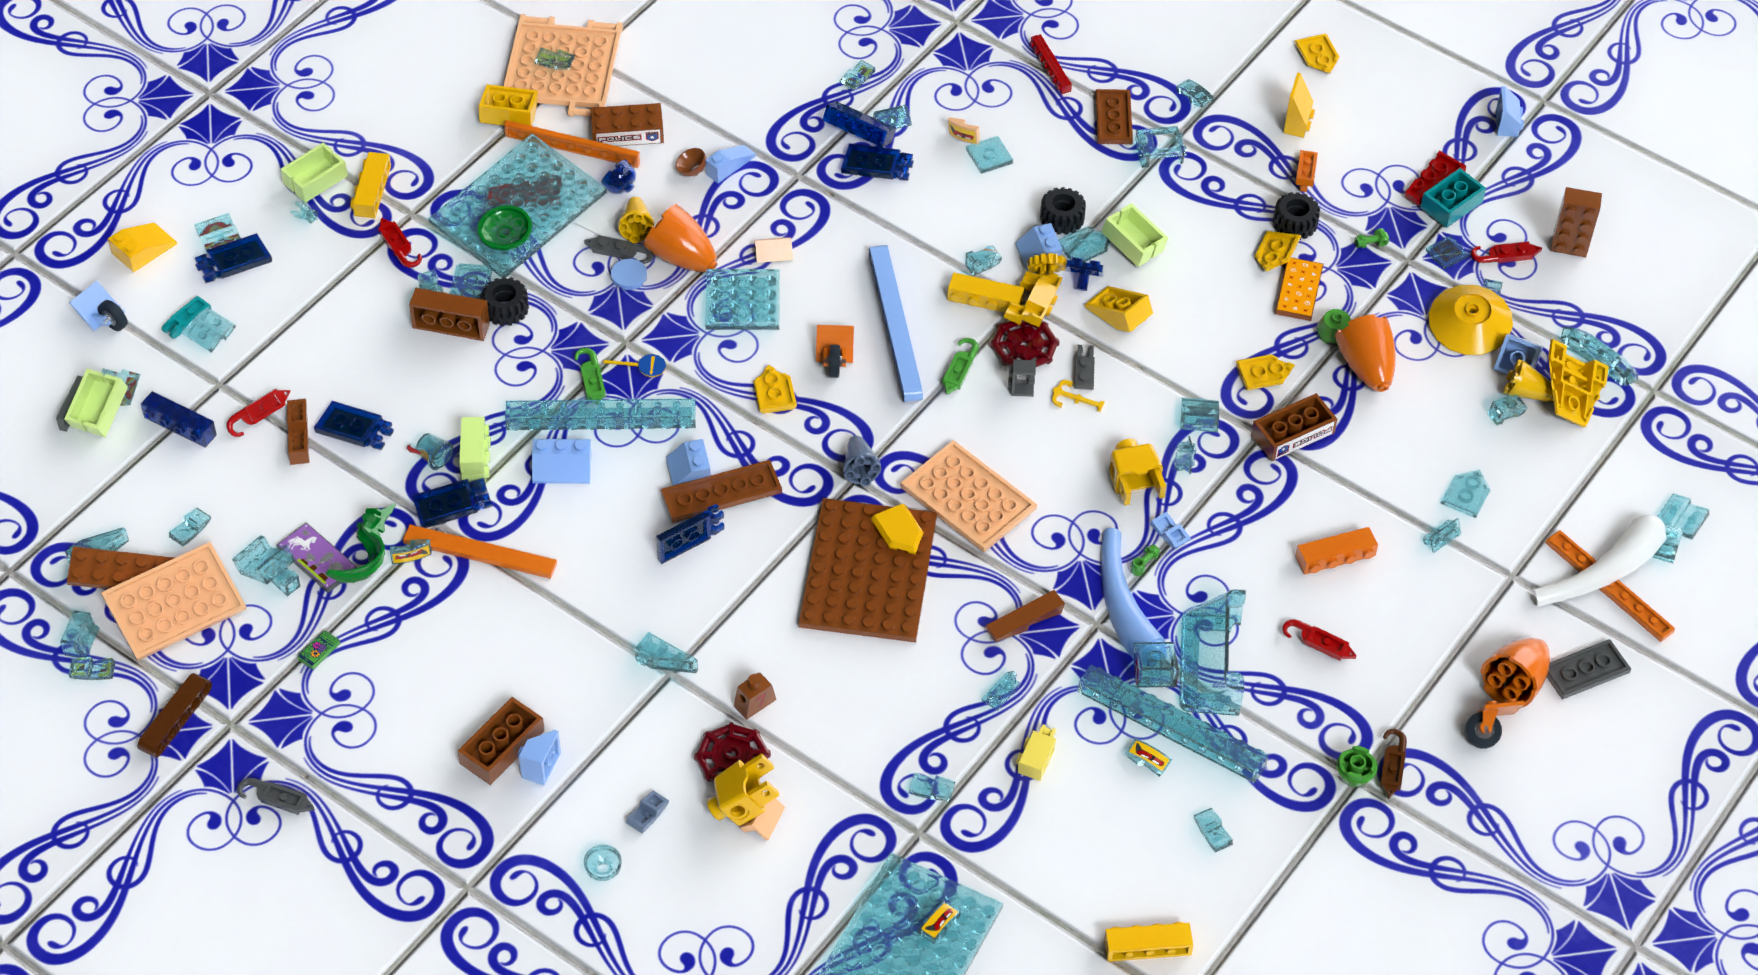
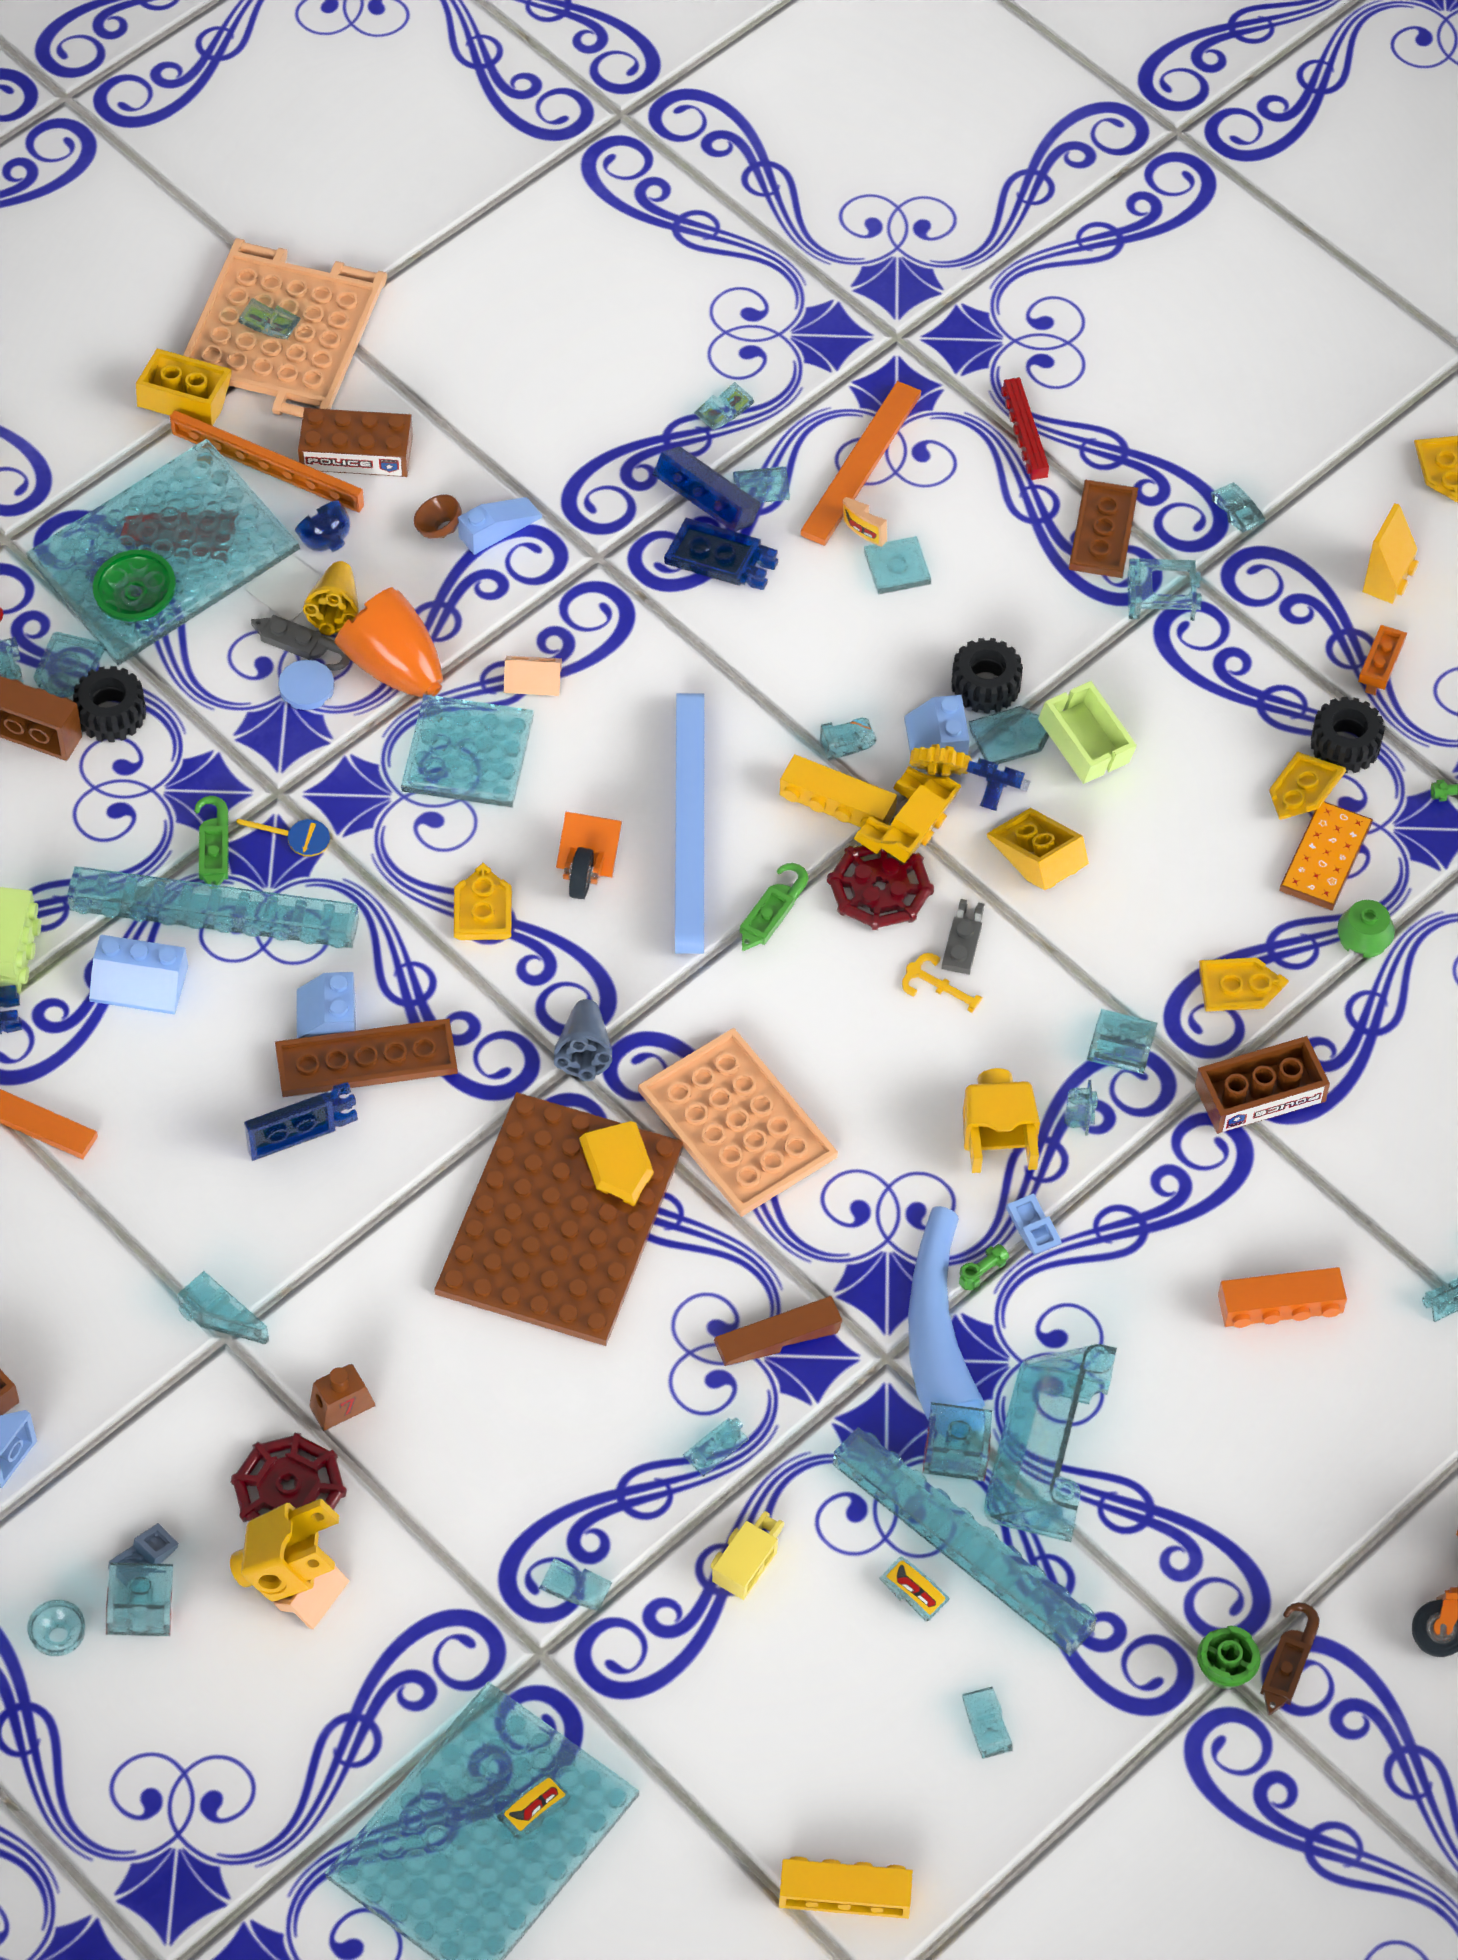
camera: 10 degrees right, 5 degrees up
(653, 837) = (139, 1599): none -> clear light blue slope
(951, 97) = (861, 462): none -> orange tile
(1022, 378) = (861, 942): dark grey window -> none
(1321, 640) = (1224, 1440): red plate -> none
(1369, 350) = (1407, 977): orange cylinder -> none

